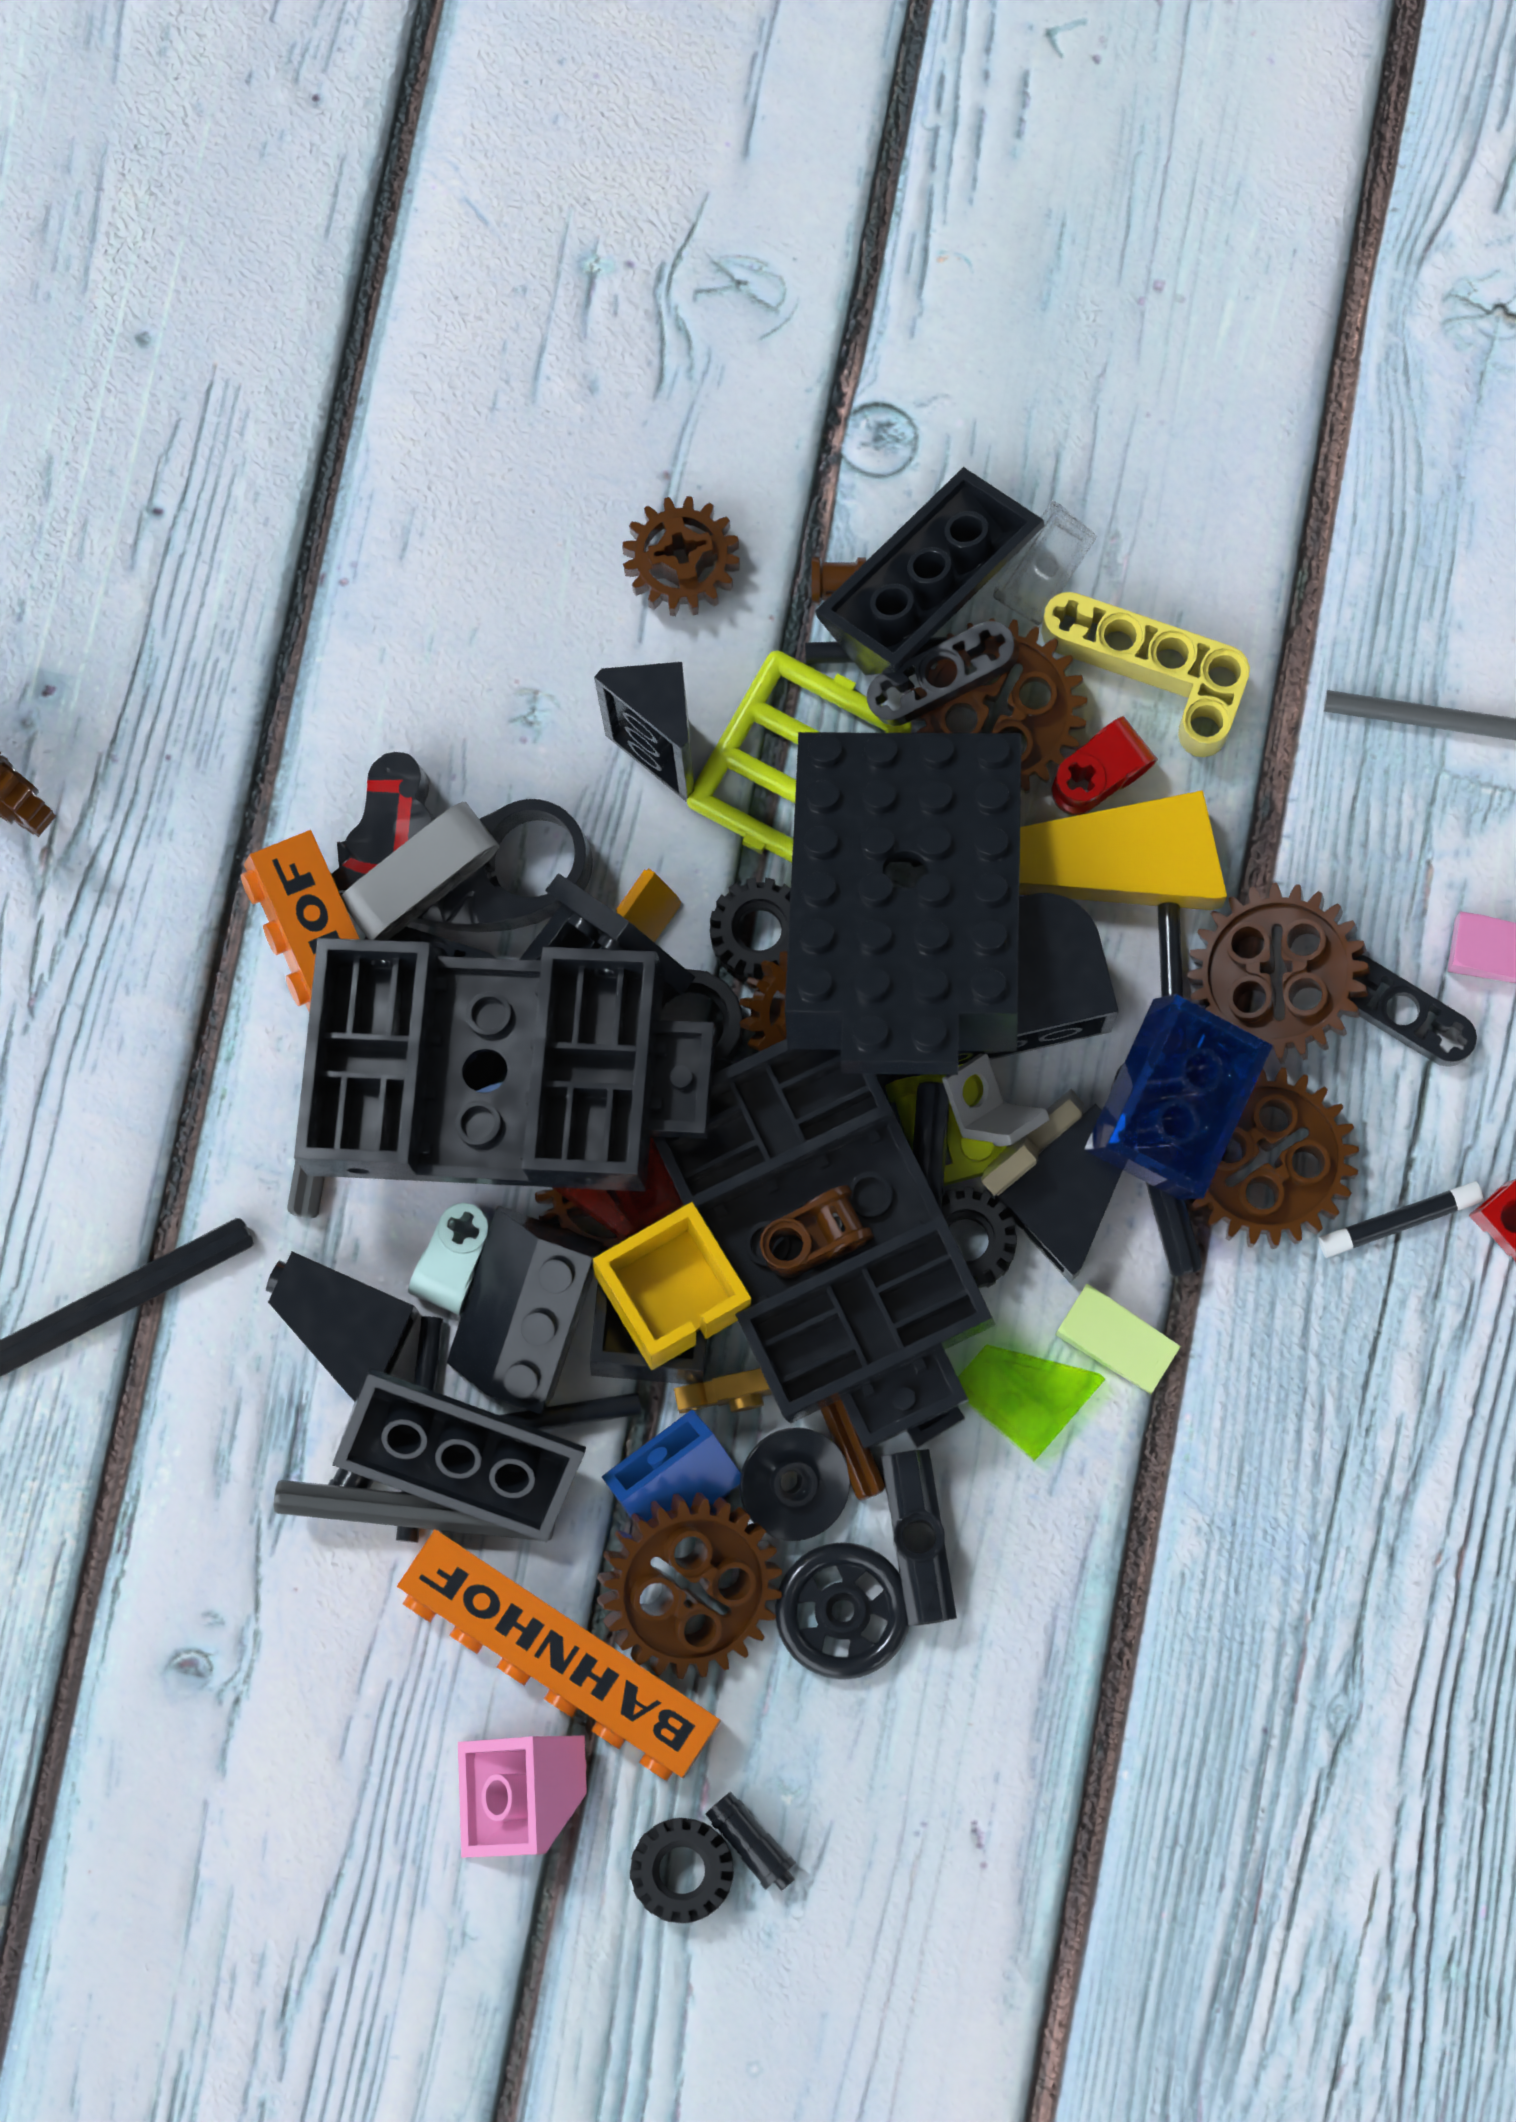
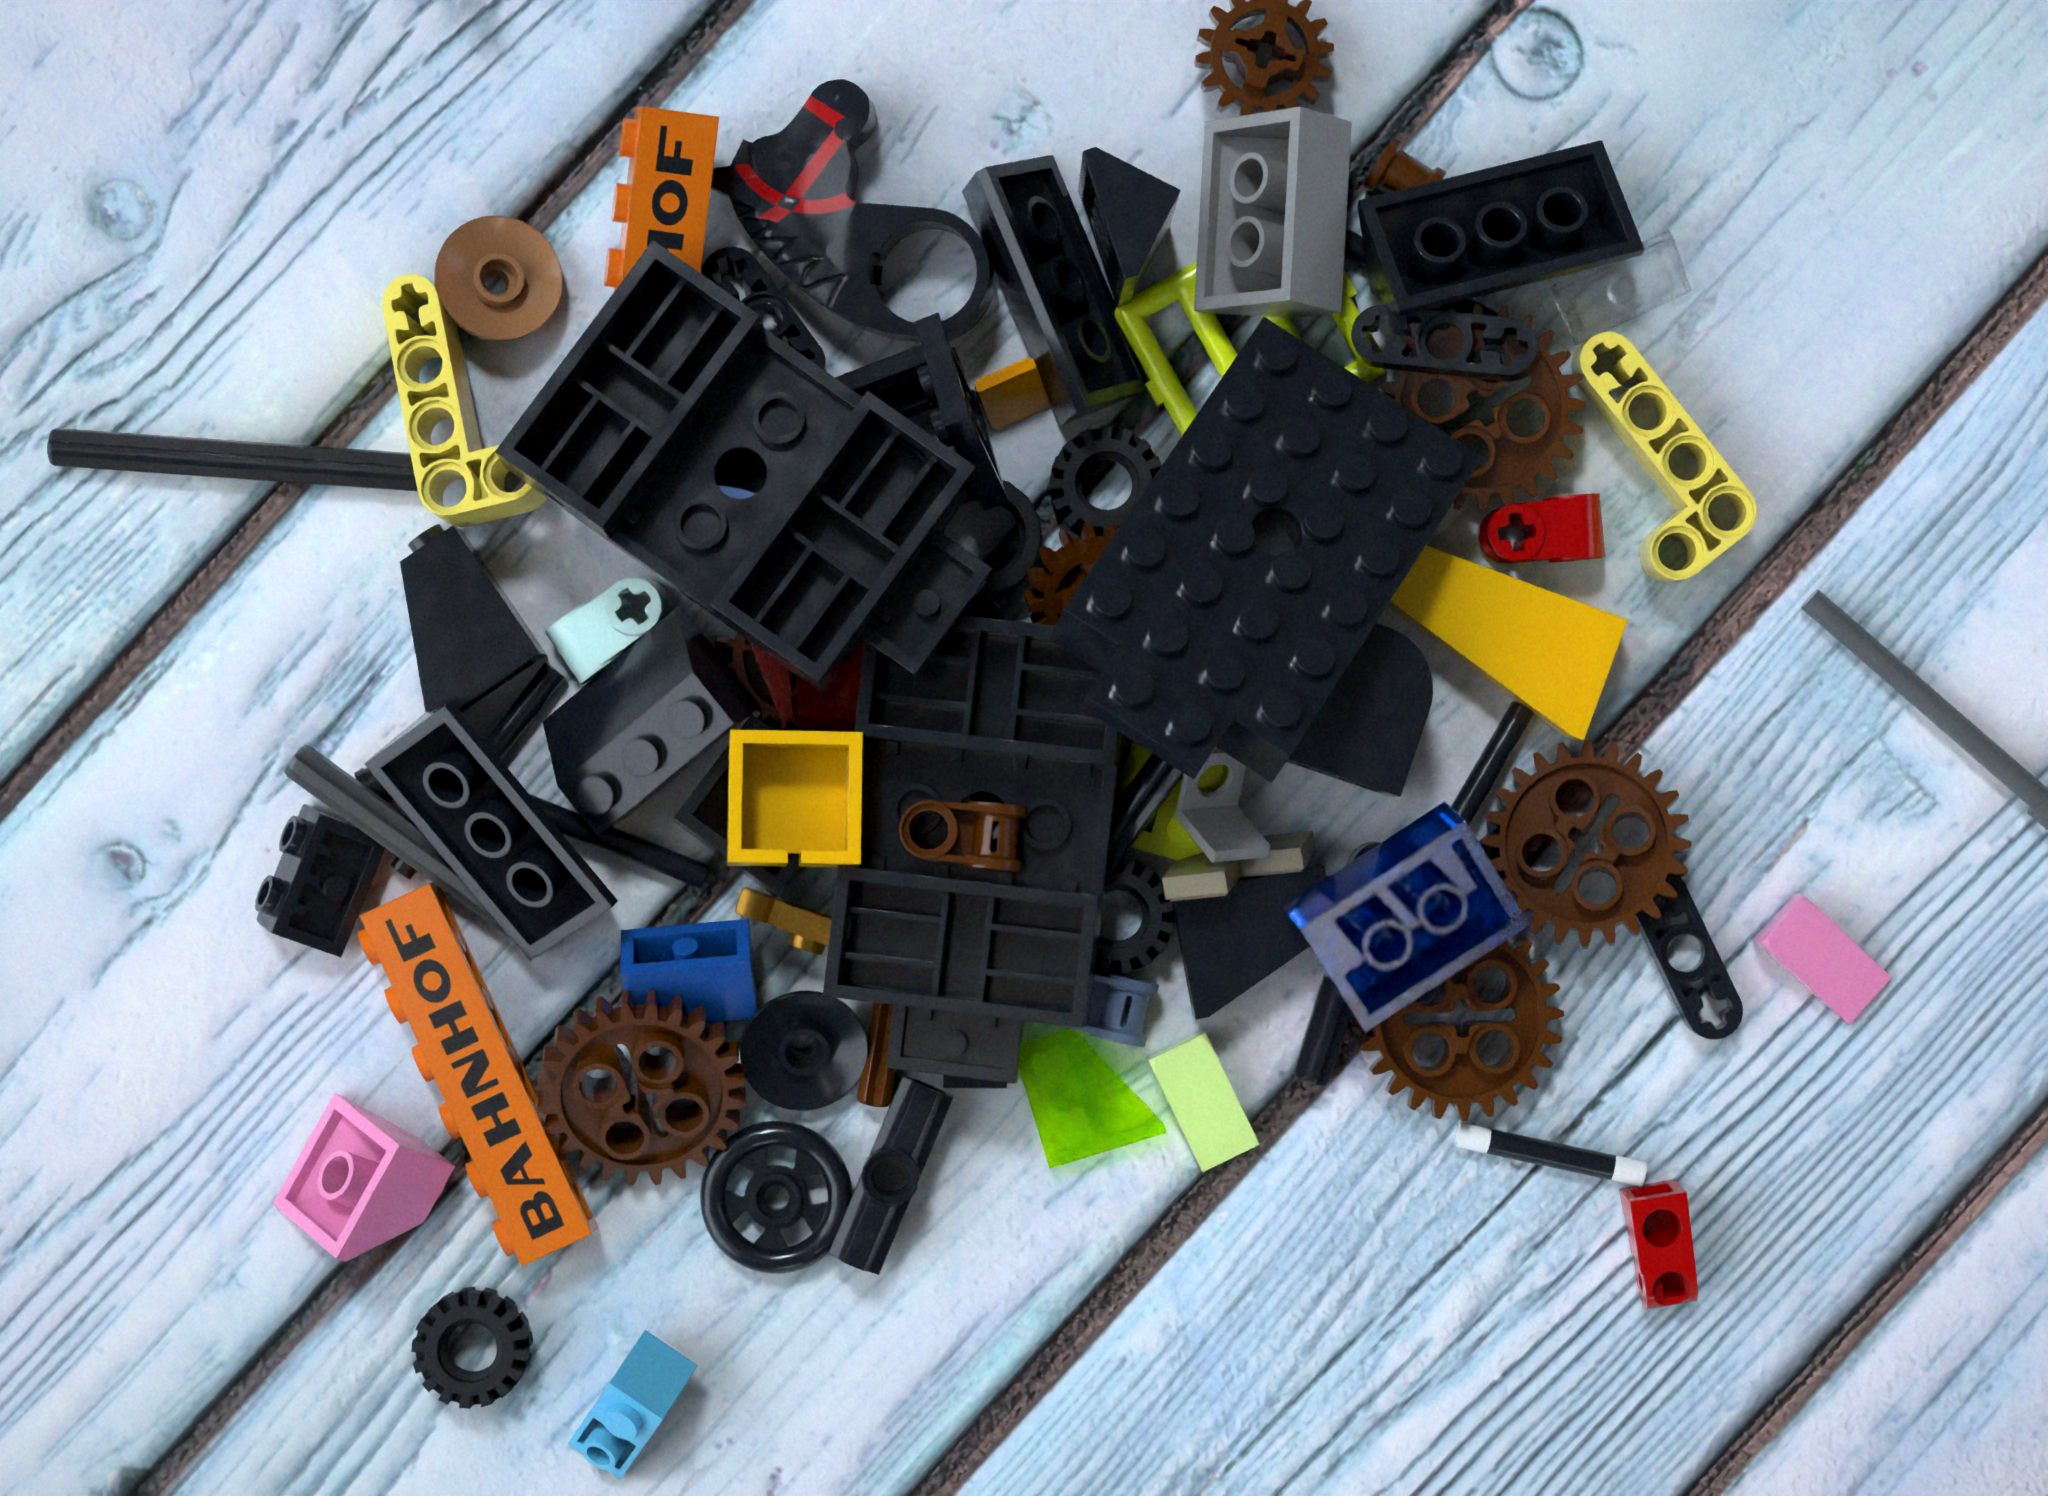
camera: 20 degrees right, 10 degrees up
(215, 1031) = (506, 250): none -> medium nougat dish
(231, 1163) = (440, 399): none -> light yellow beam
(349, 1583) = (318, 881): none -> black bracket
(420, 873) = (802, 226): light grey beam -> none
(631, 812) = (1054, 286): none -> black slope
(751, 1842) = (555, 1364): black piece -> none
(759, 660) = (1273, 214): none -> light grey slope
(831, 1837) = (632, 1405): none -> medium azure slope
(1000, 1302) = (1108, 1004): none -> sand blue piece

